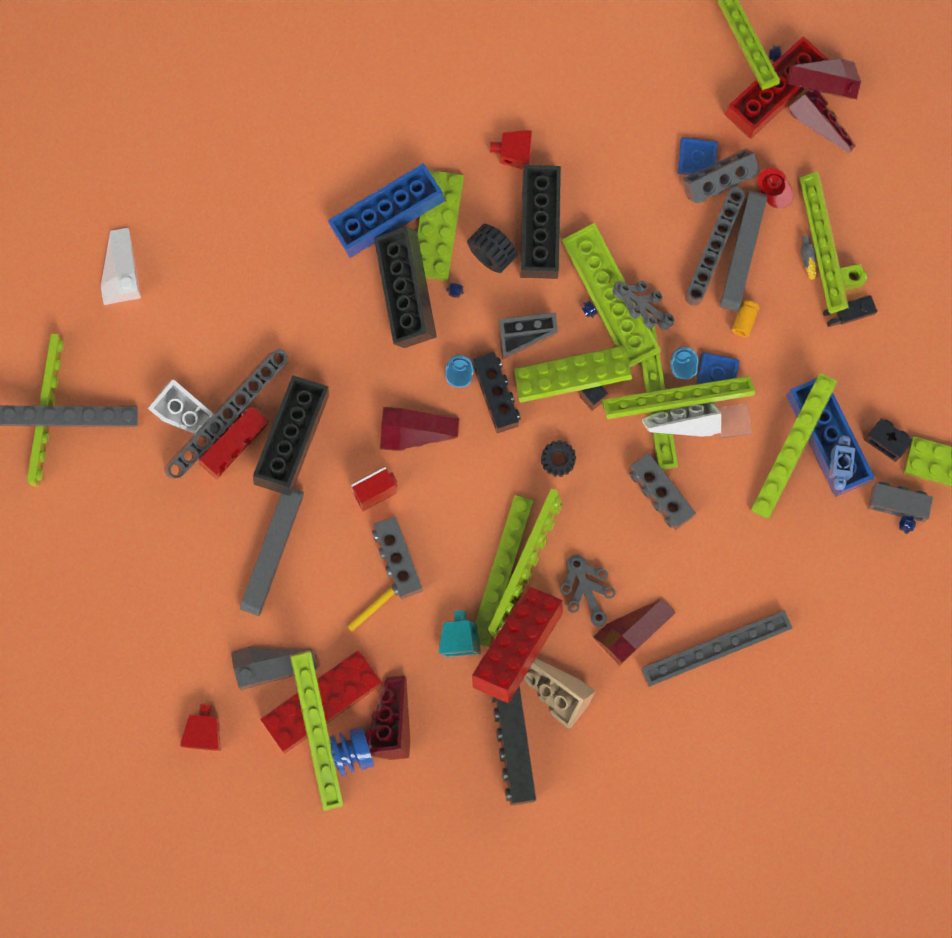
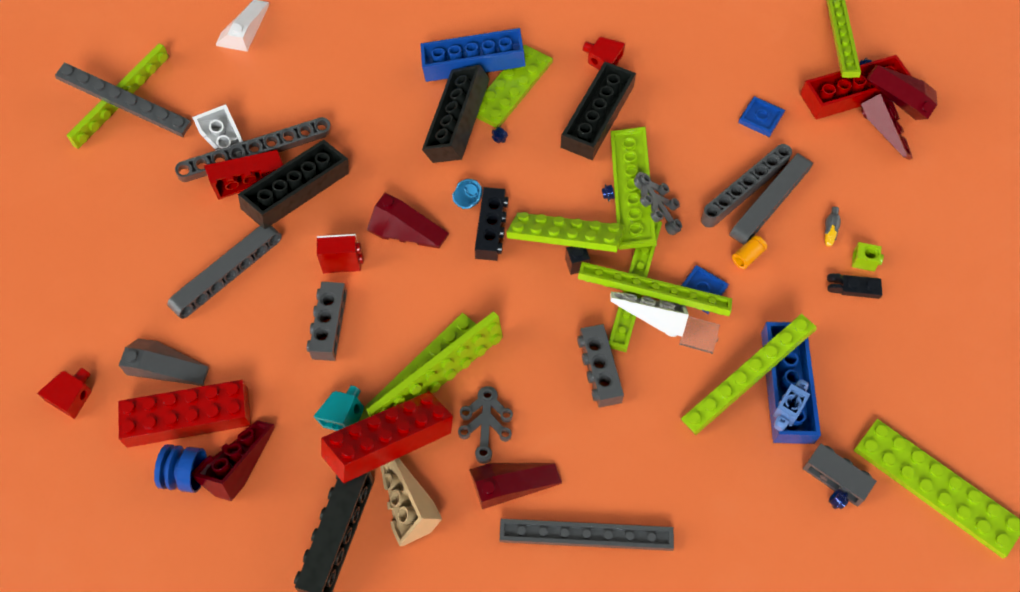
camera: 30 degrees right, 15 degrees down
(316, 730) = (156, 431): lime plate -> none
(371, 609) = (278, 355): yellow bar -> none
(492, 248) = (545, 111): black tyre -> none
(525, 332) = (541, 186): dark grey wedge -> none
(558, 469) = (516, 308): black tyre -> none
(684, 363) = (674, 264): dark azure hair -> none
(727, 167) = (804, 135): dark grey brick -> none
(776, 186) = (824, 159): red piece -> none
(824, 242) = (851, 219): lime plate -> none
(895, 447) = (840, 406): black brick -> none

